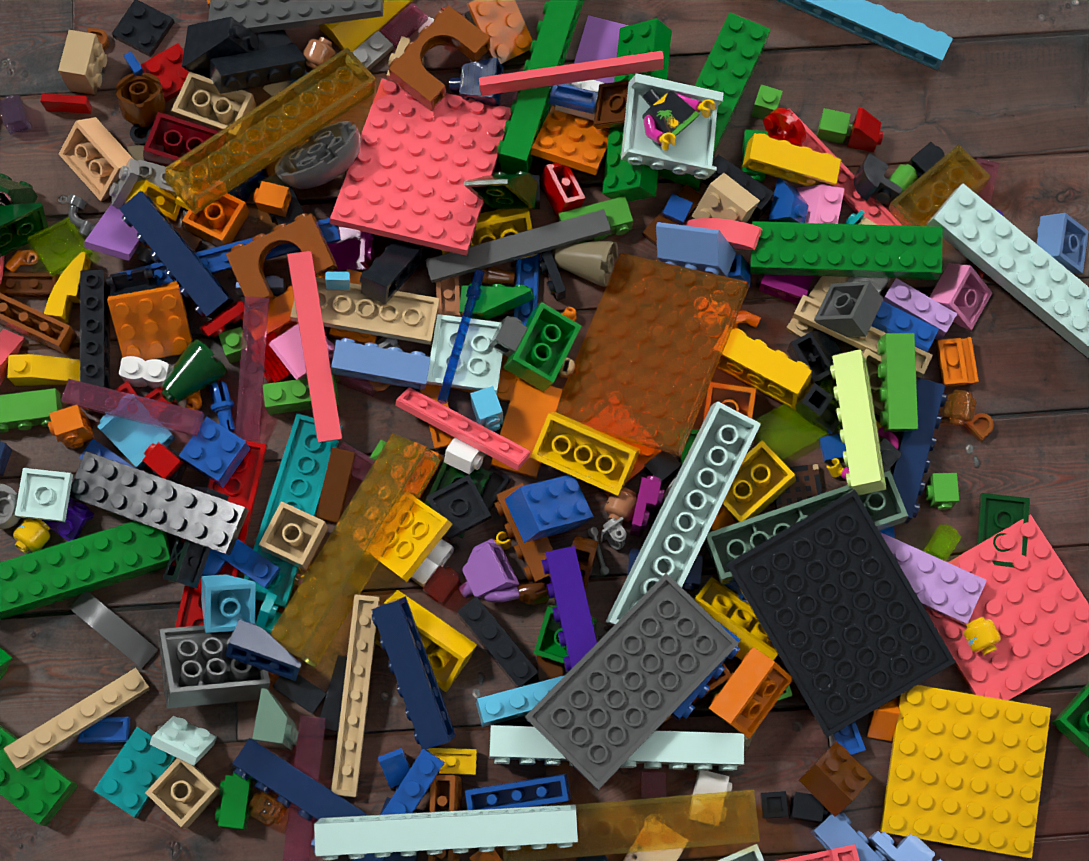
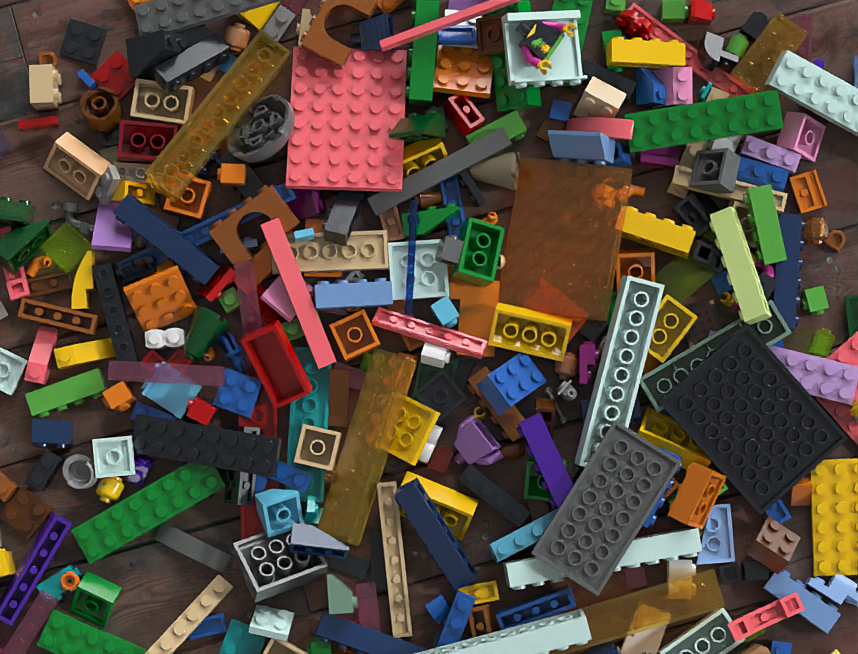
camera: 15 degrees left, 10 degrees up
(267, 424) = (276, 364): none -> red piece
(372, 414) = (355, 335): none -> orange brick
(767, 756) = (717, 537): none -> light blue wing

